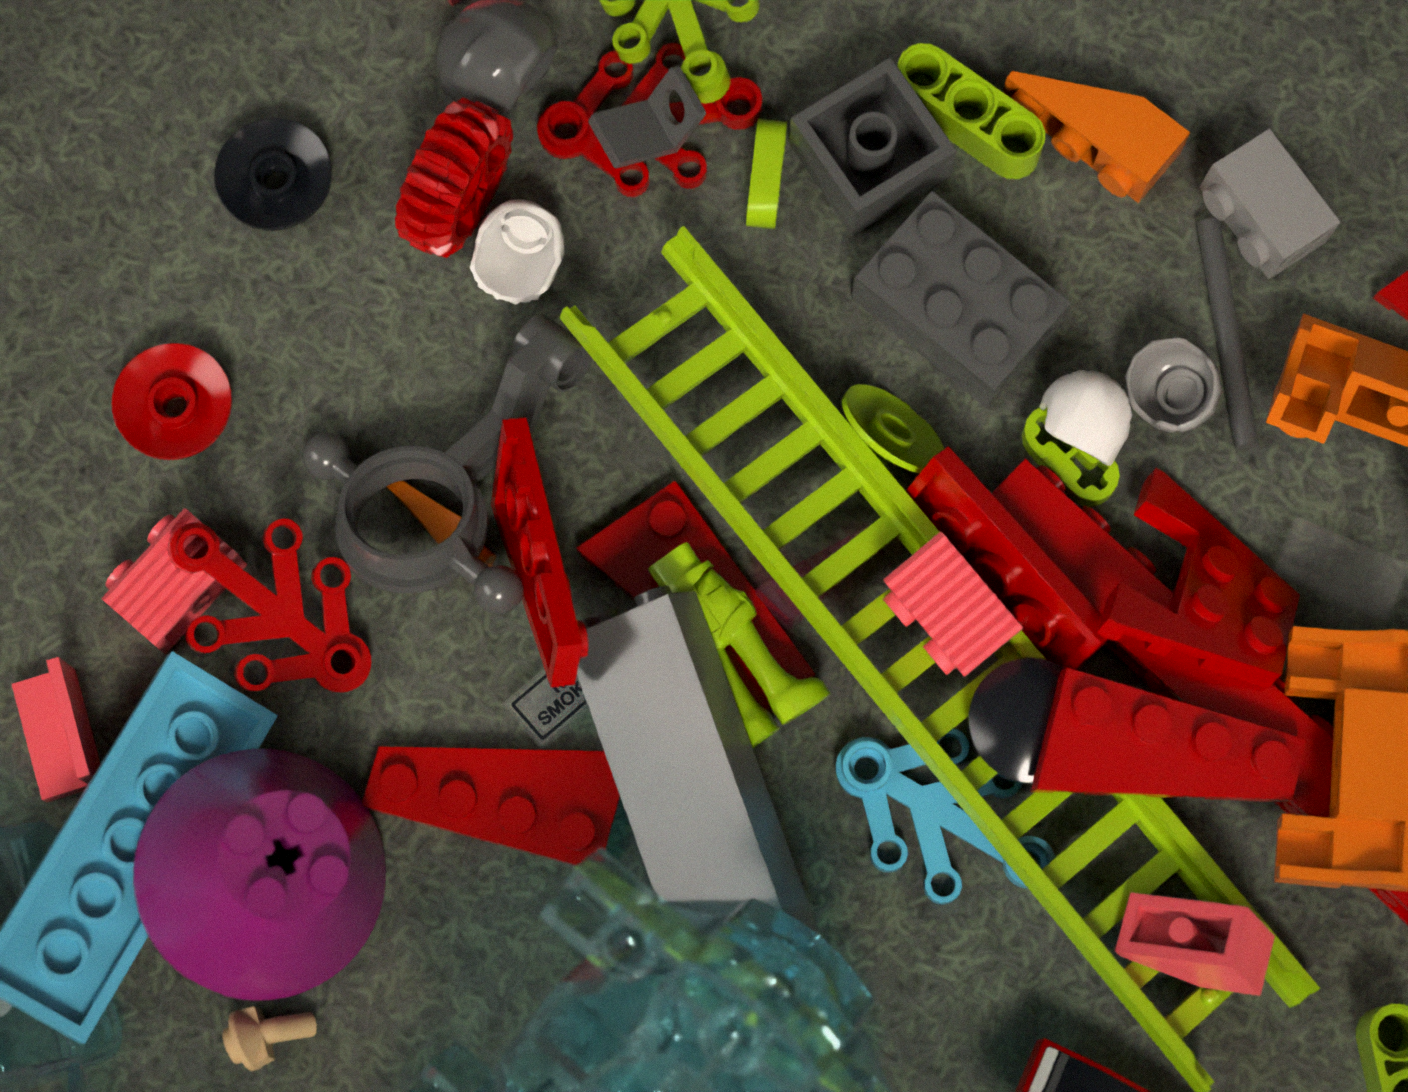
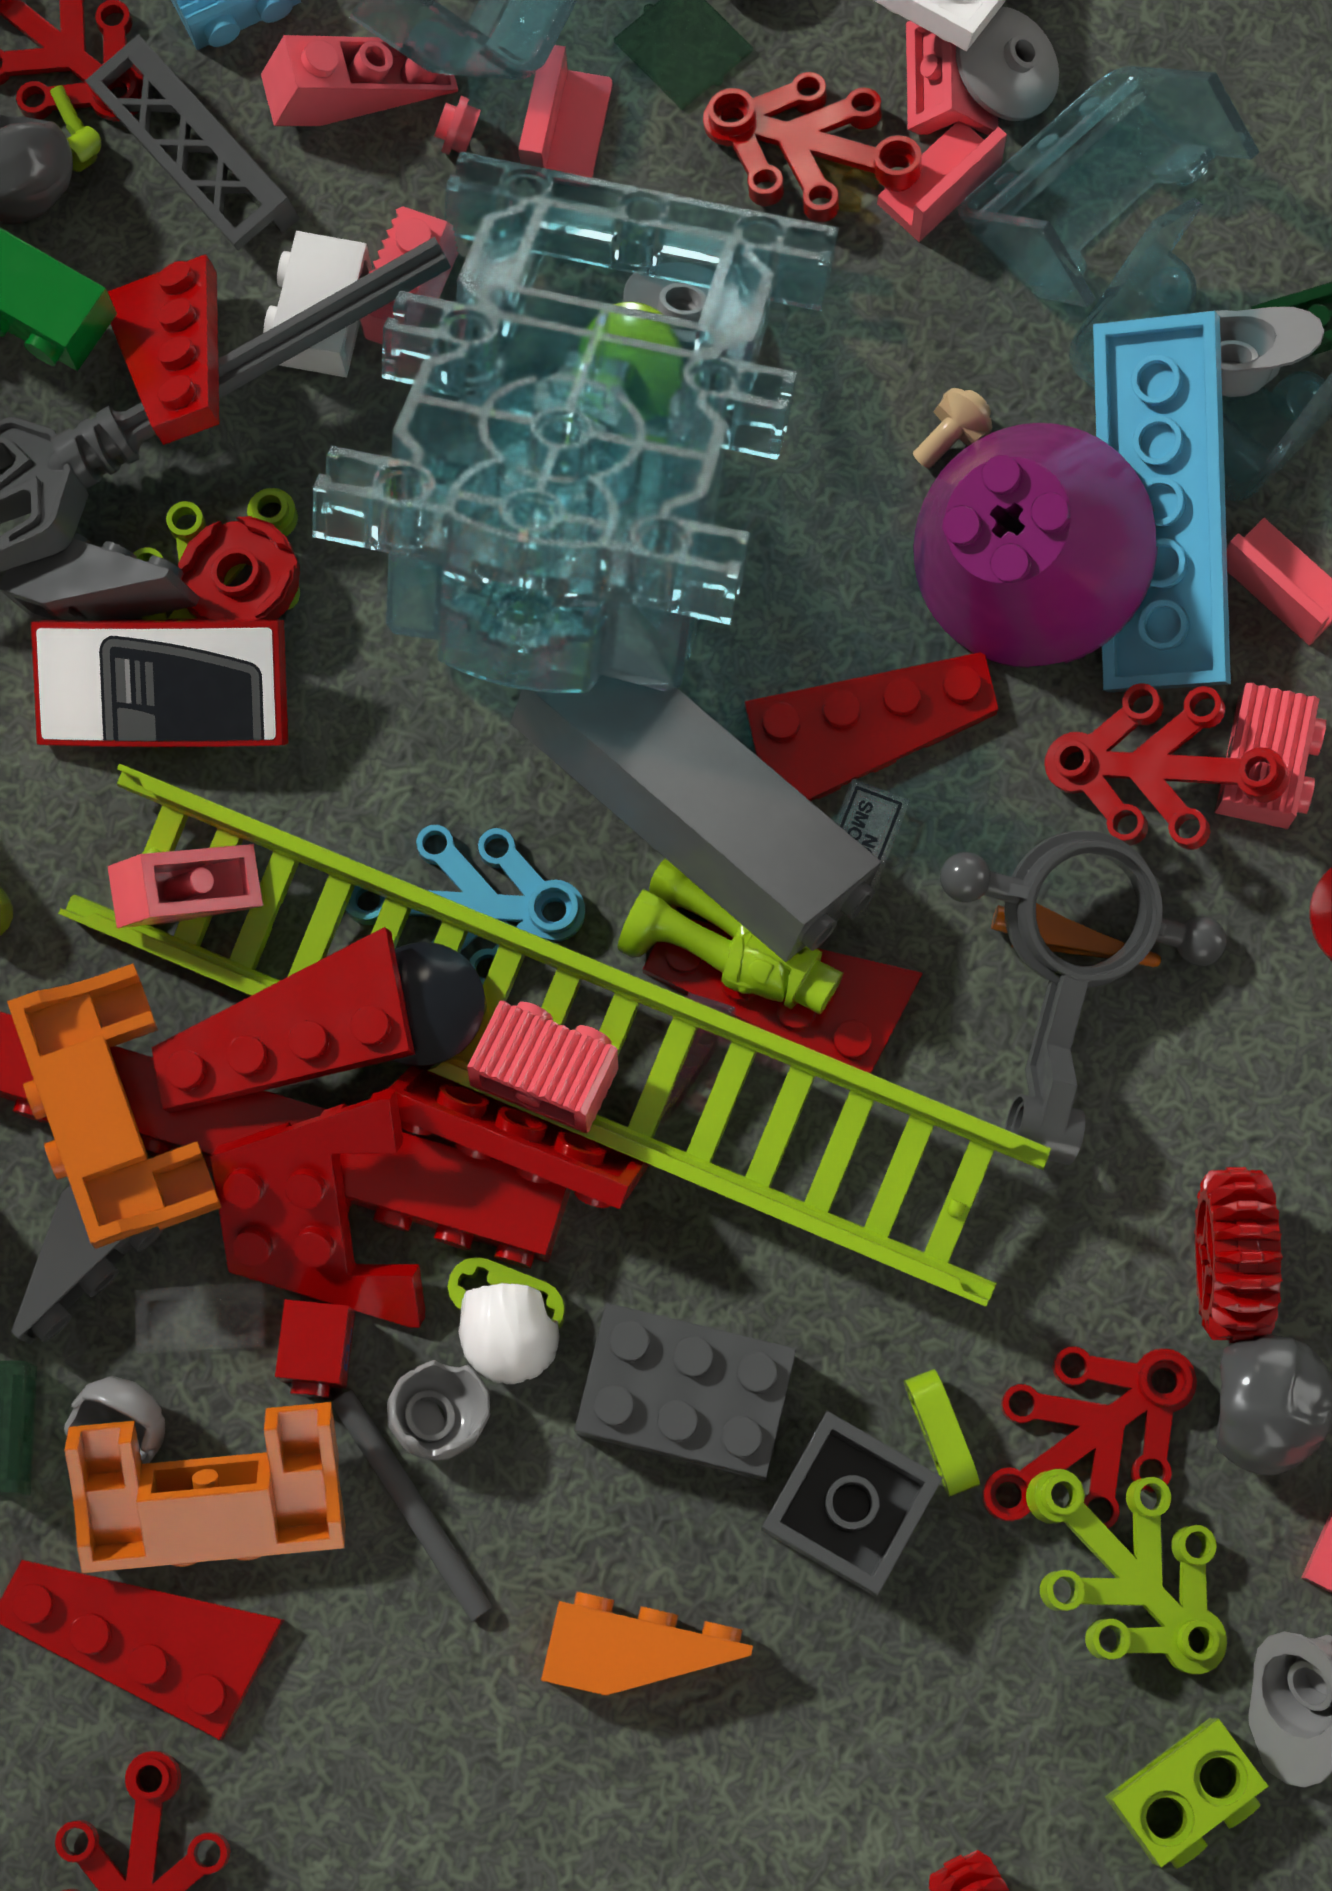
camera: 155 degrees right, 0 degrees up
(517, 251) = (1136, 1221): white hair -> none
(534, 554) = (954, 929): red wing -> none
(648, 127) = (1085, 1409): dark grey bracket -> none
(890, 427) = (684, 1225): lime dish -> none
(981, 137) = (808, 1601): lime beam -> none
(1254, 490) = (314, 1347): none -> red brick
(1268, 204) = (429, 1648): light grey brick -> none

